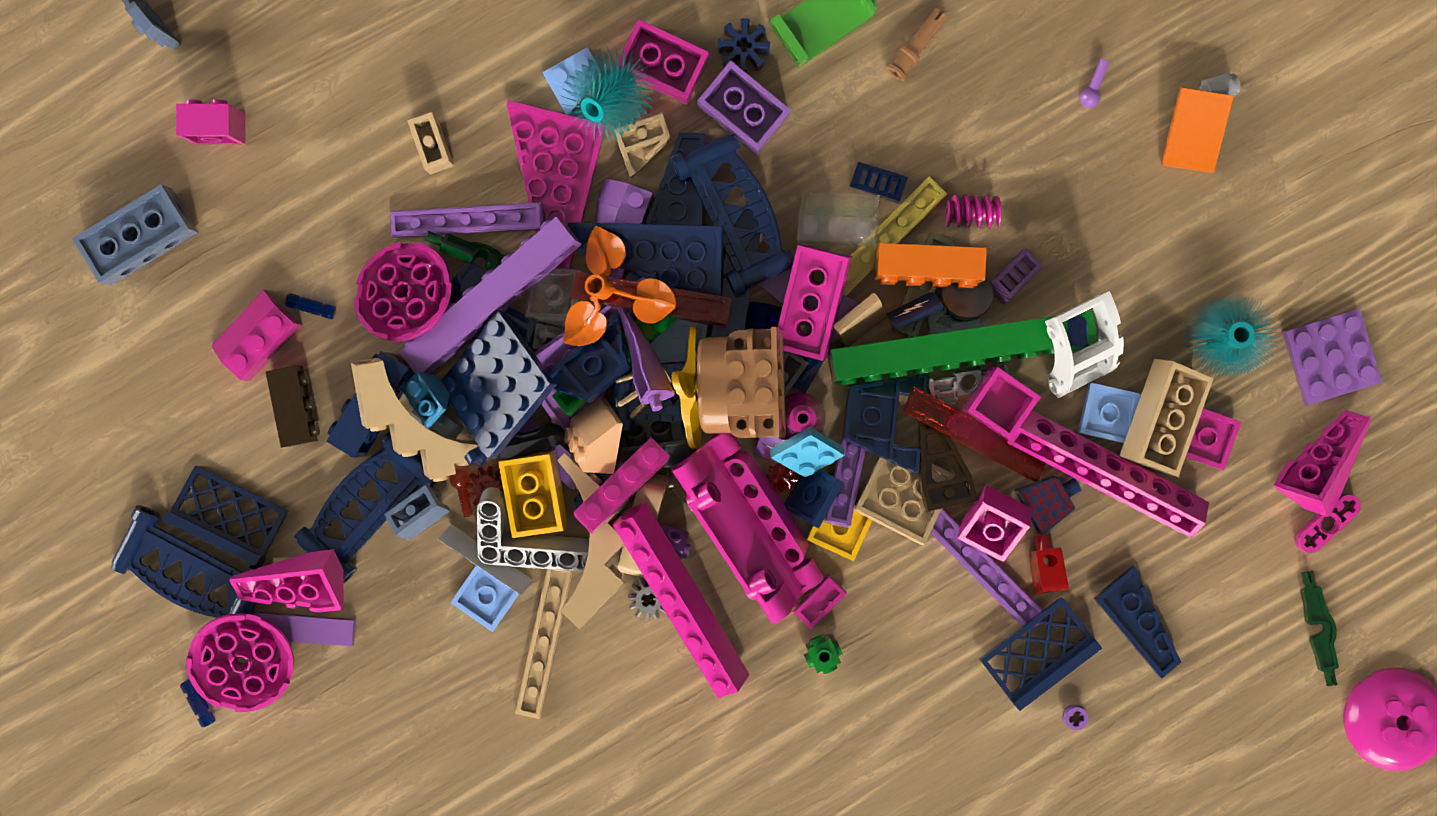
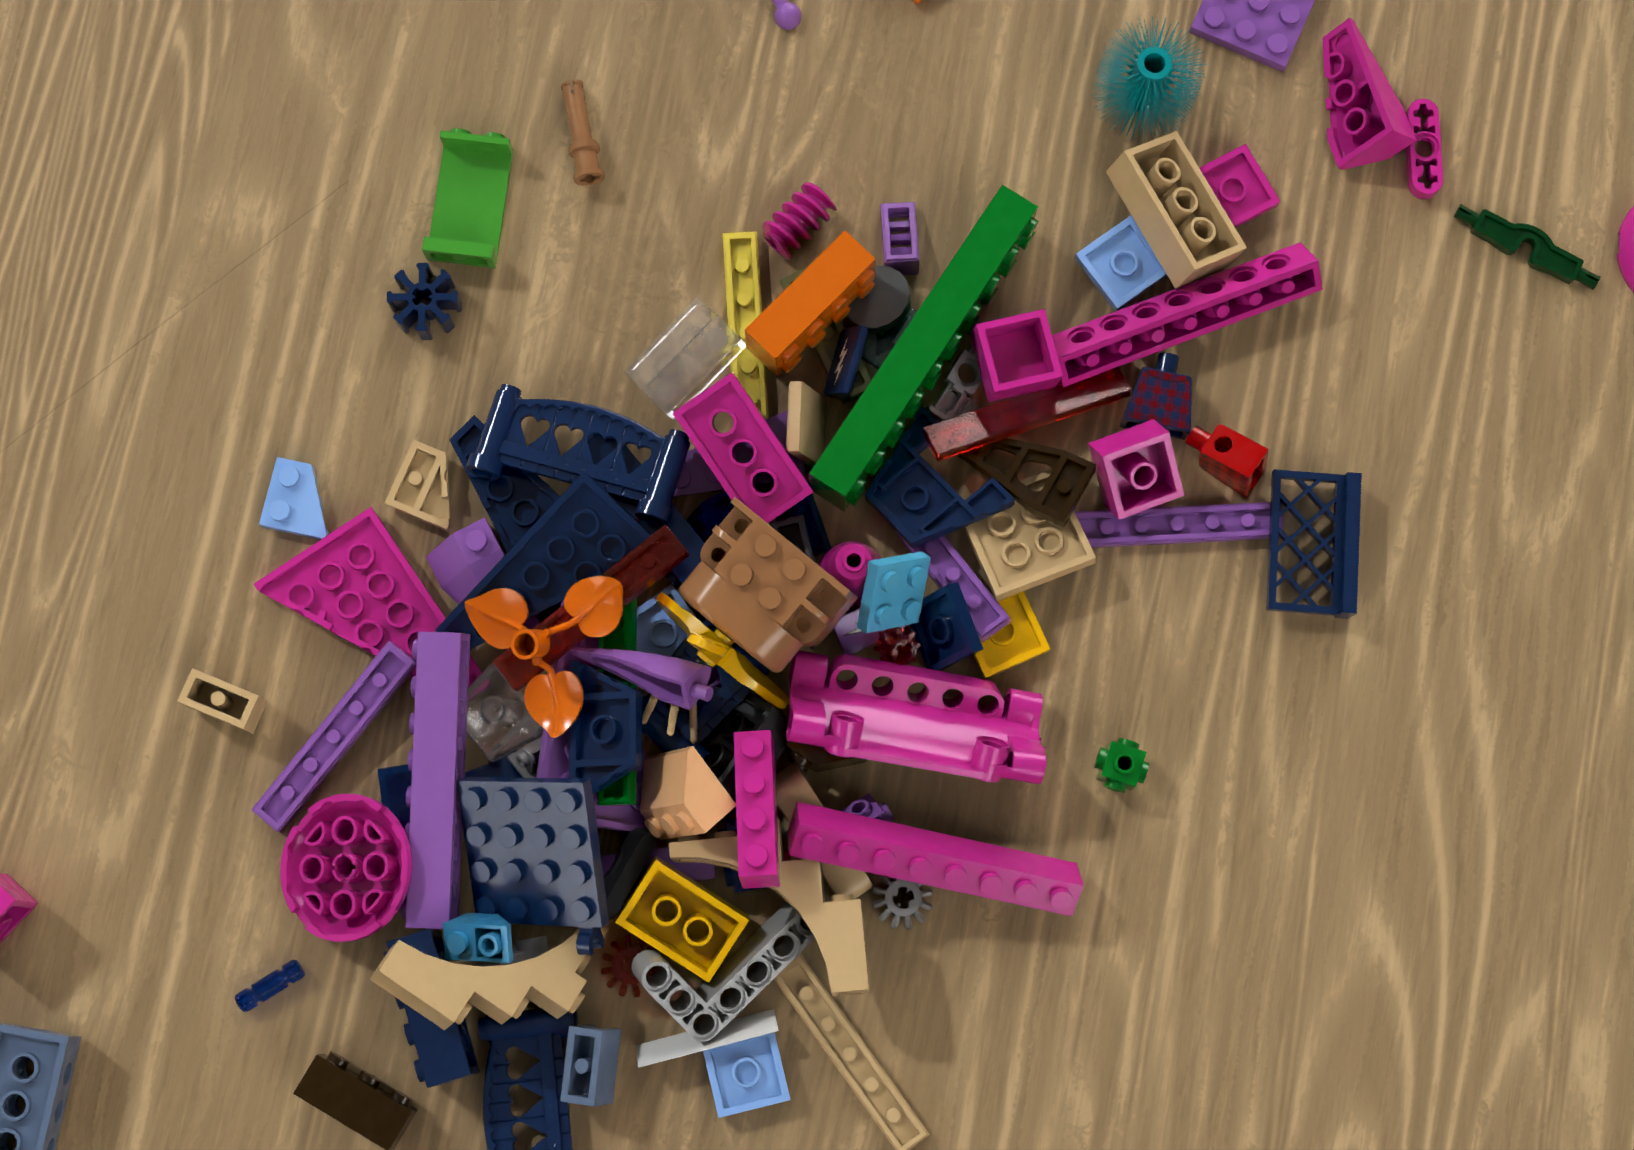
camera: 45 degrees left, 10 degrees down
(255, 336) = (246, 1074): dark pink slope -> none
(459, 481) = (598, 993): clear red bar -> none
(466, 250) = (366, 764): dark green piece -> none
(608, 94) = (345, 470): teal piece -> none
(670, 61) = (363, 393): dark pink brick -> none
(743, 107) = (483, 352): medium lavender brick -> none
(819, 602) = (1063, 722): dark pink plate -> none
(891, 176) = (687, 271): clear blue slope -> none
(1077, 331) = (1009, 216): clear blue piece -> none
(1080, 723) = (1424, 566): medium lavender bush -> none
(1092, 362) = (1055, 229): white window -> none
(1133, 613) = (1361, 416): dark blue wing -> none

